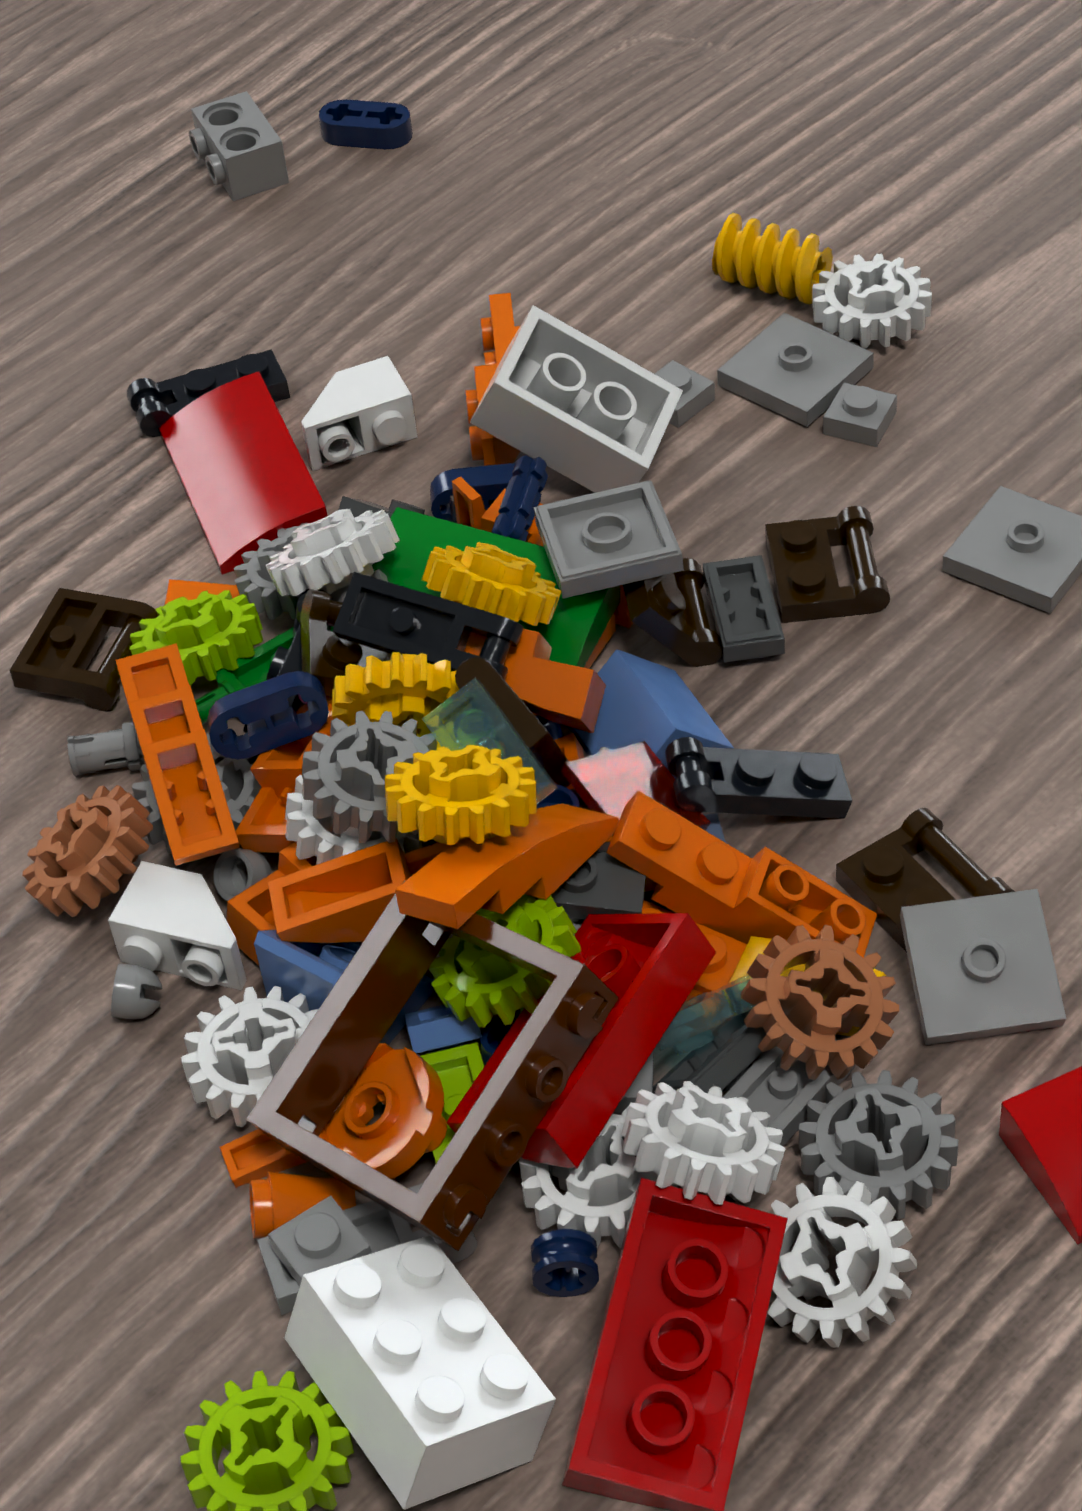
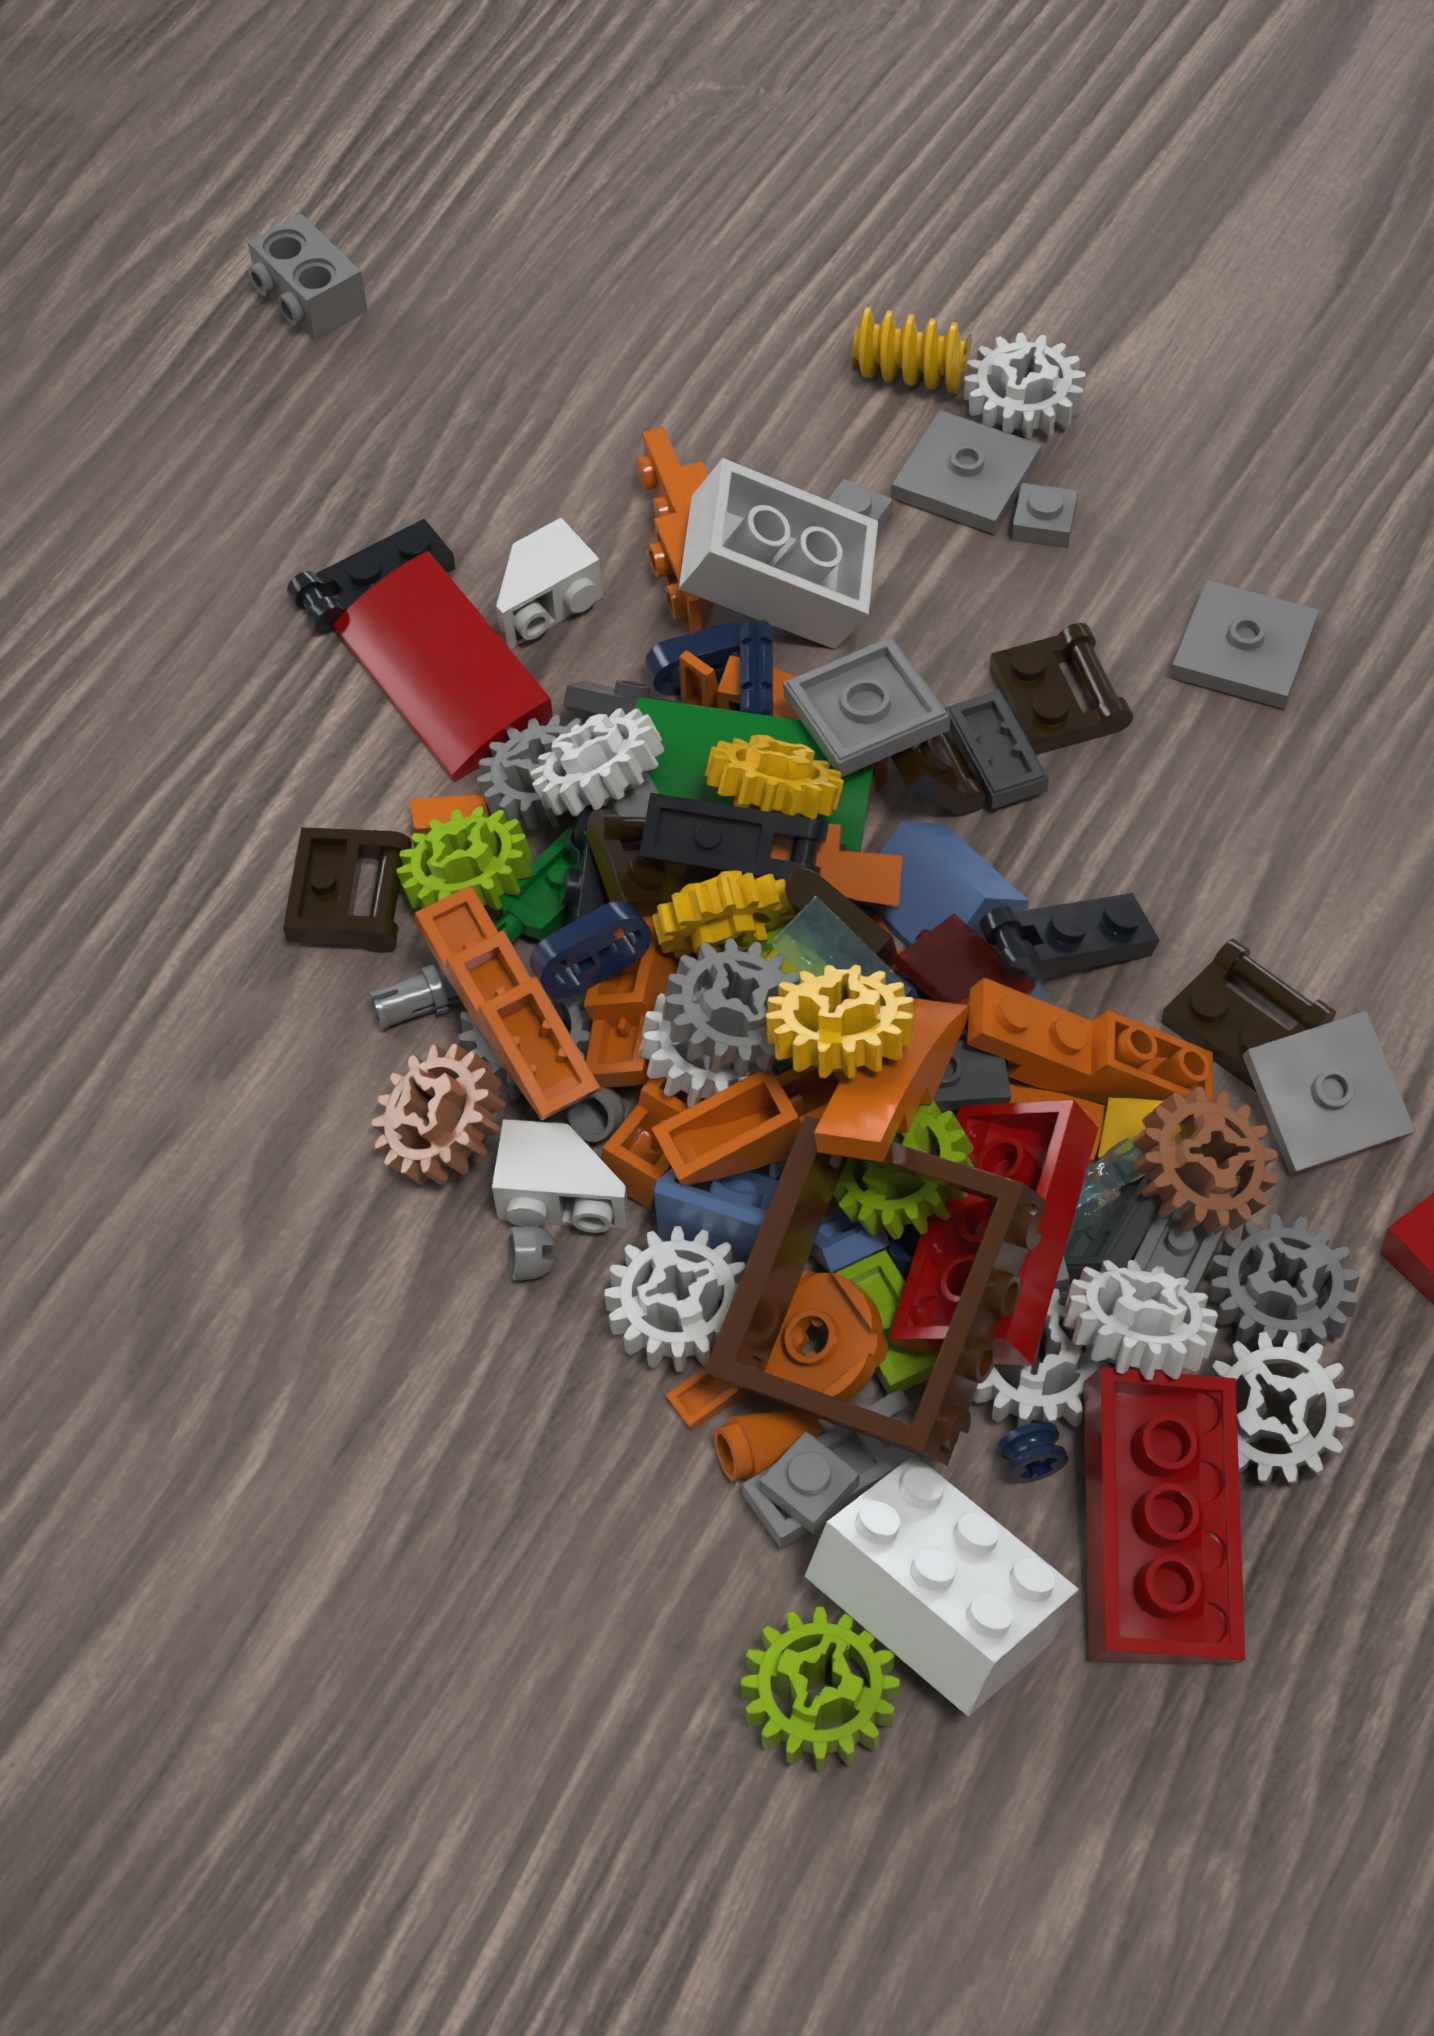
camera: 15 degrees left, 10 degrees up
(365, 124) = (430, 232): dark blue beam -> none

